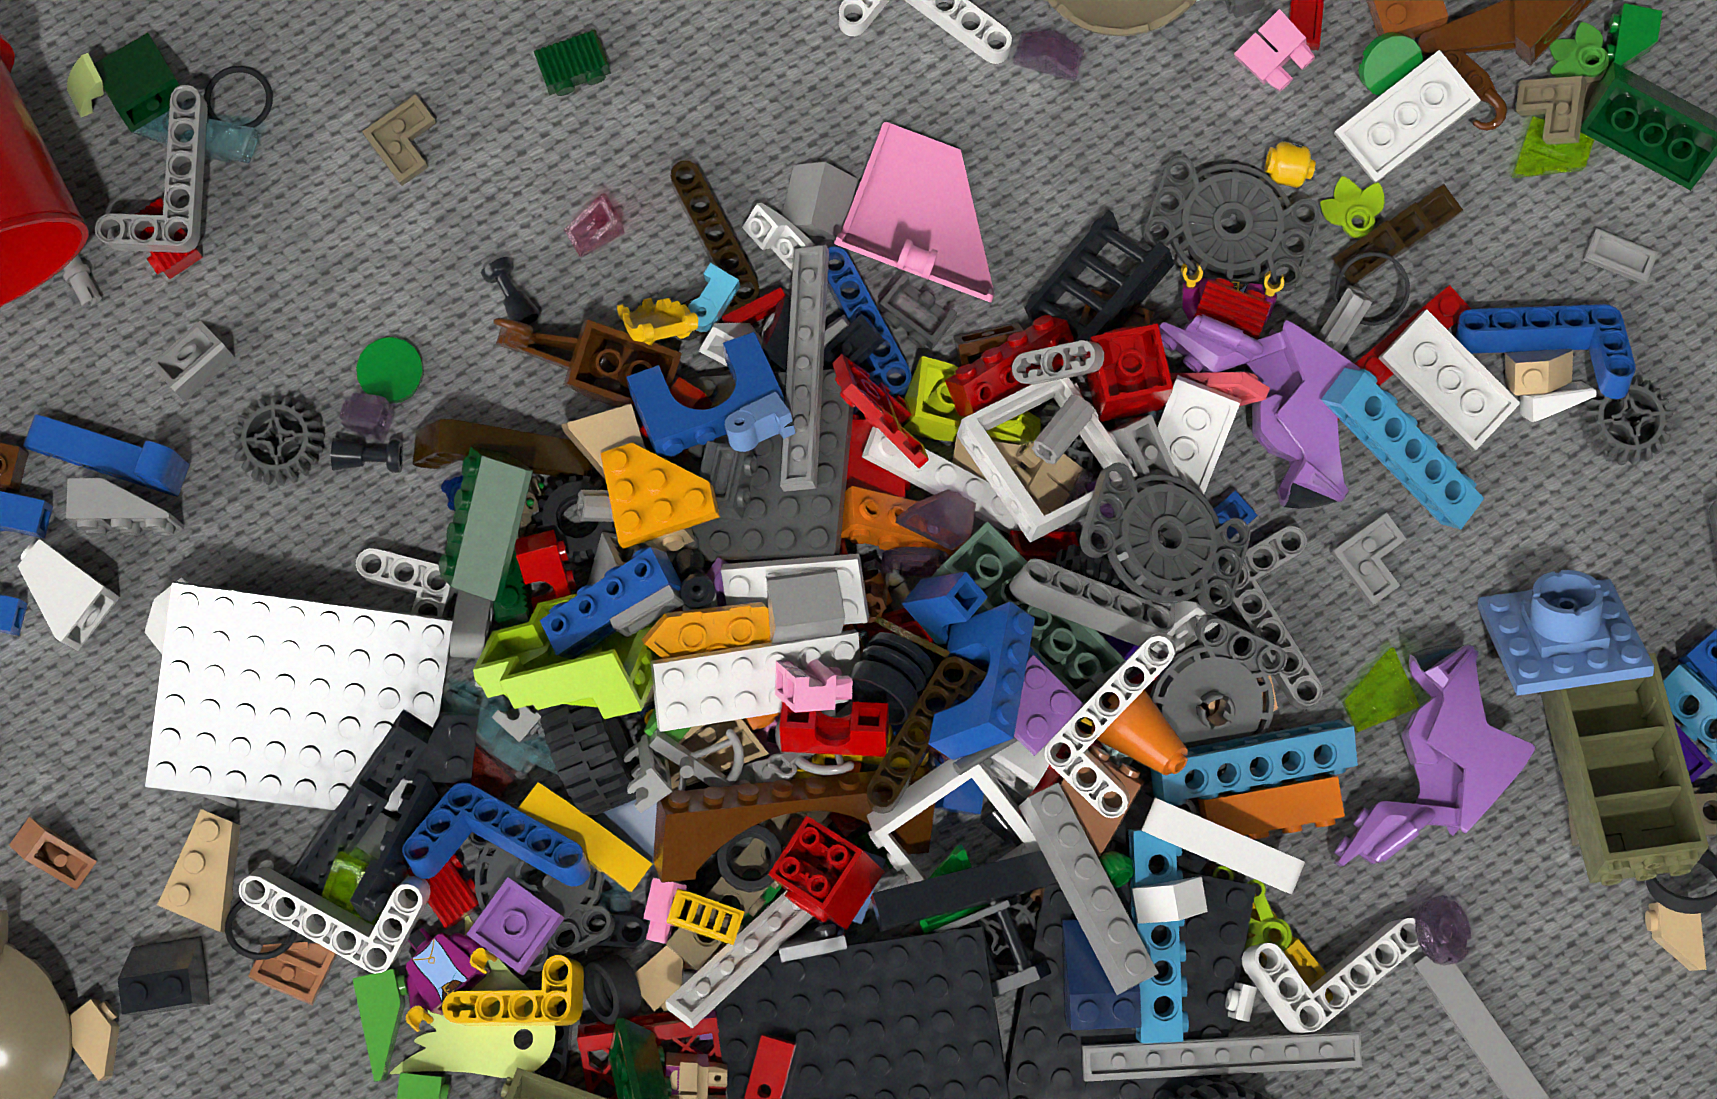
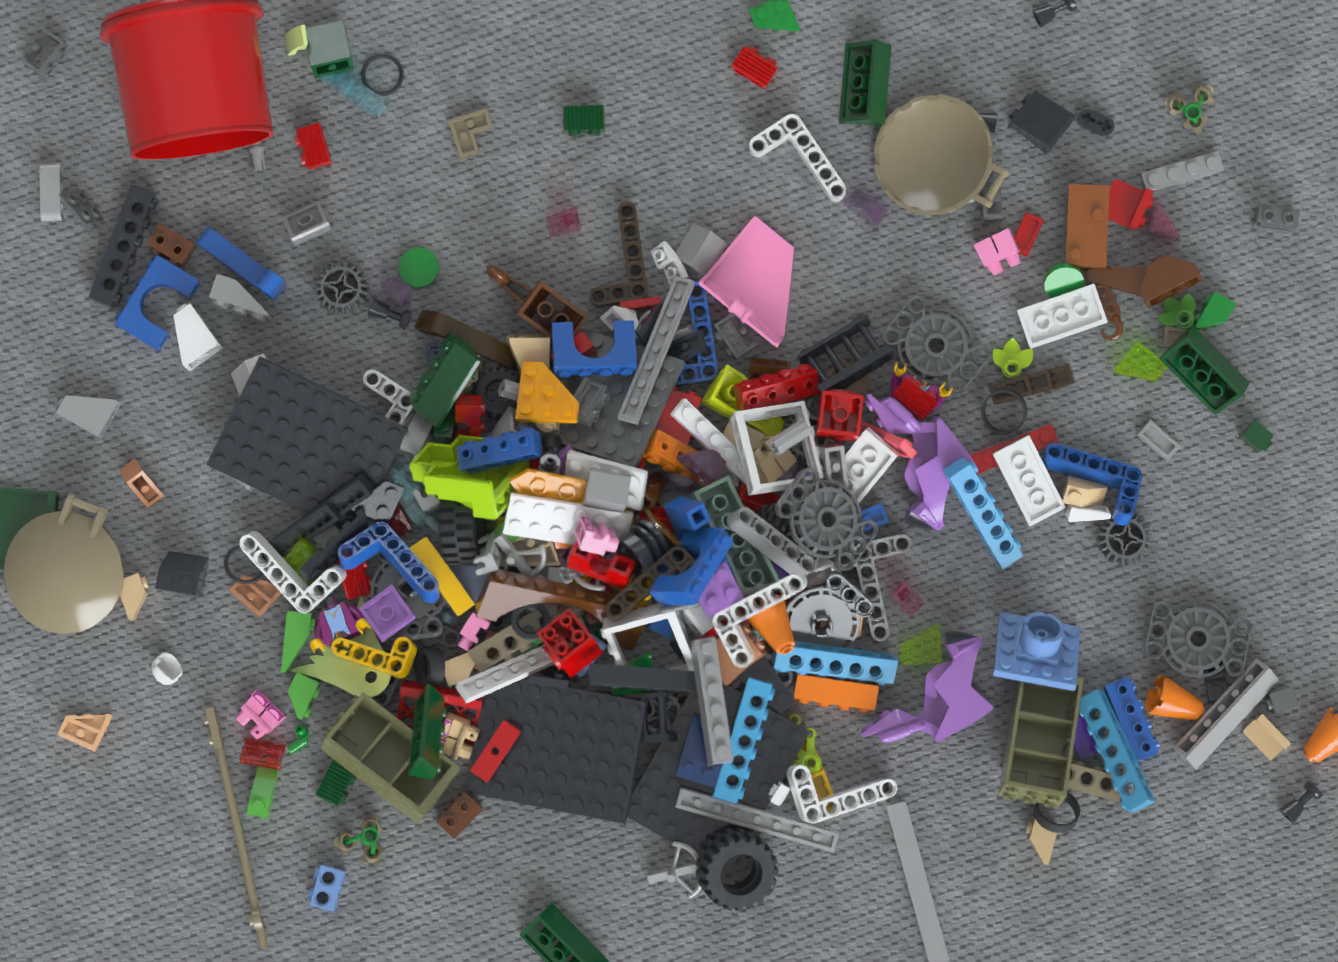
camera: 20 degrees right, 5 degrees up
(175, 187) = (330, 120): light grey beam -> none
(204, 872) = (222, 523): tan wedge -> none
(516, 302) = (504, 254): black piece -> none
(647, 611) = (518, 463): light grey tile -> none
(658, 320) = (580, 293): yellow animal -> none
(677, 906) = (481, 632): yellow slope -> none
(714, 298) = (618, 291): medium azure leg -> none
(759, 422) = (616, 376): medium blue leg -> none
(878, 407) = (687, 386): red wing -> none
(1070, 367) = (792, 400): light grey beam -> none
(1117, 867) = (732, 695): green piece -> none
(1169, 900) = (755, 723): white slope -> none
(1223, 846) = (811, 716): white beam -> none
(1289, 164) = (982, 321): yellow head -> none
(1326, 624) = (906, 598): none -> clear pink slope
(1345, 318) = (979, 425): light grey axle -> none
(1362, 557) = (941, 566): light grey plate -> none
(1442, 930) = (908, 792): clear purple tile -> none
(1561, 102) = (1155, 339): dark tan plate -> none

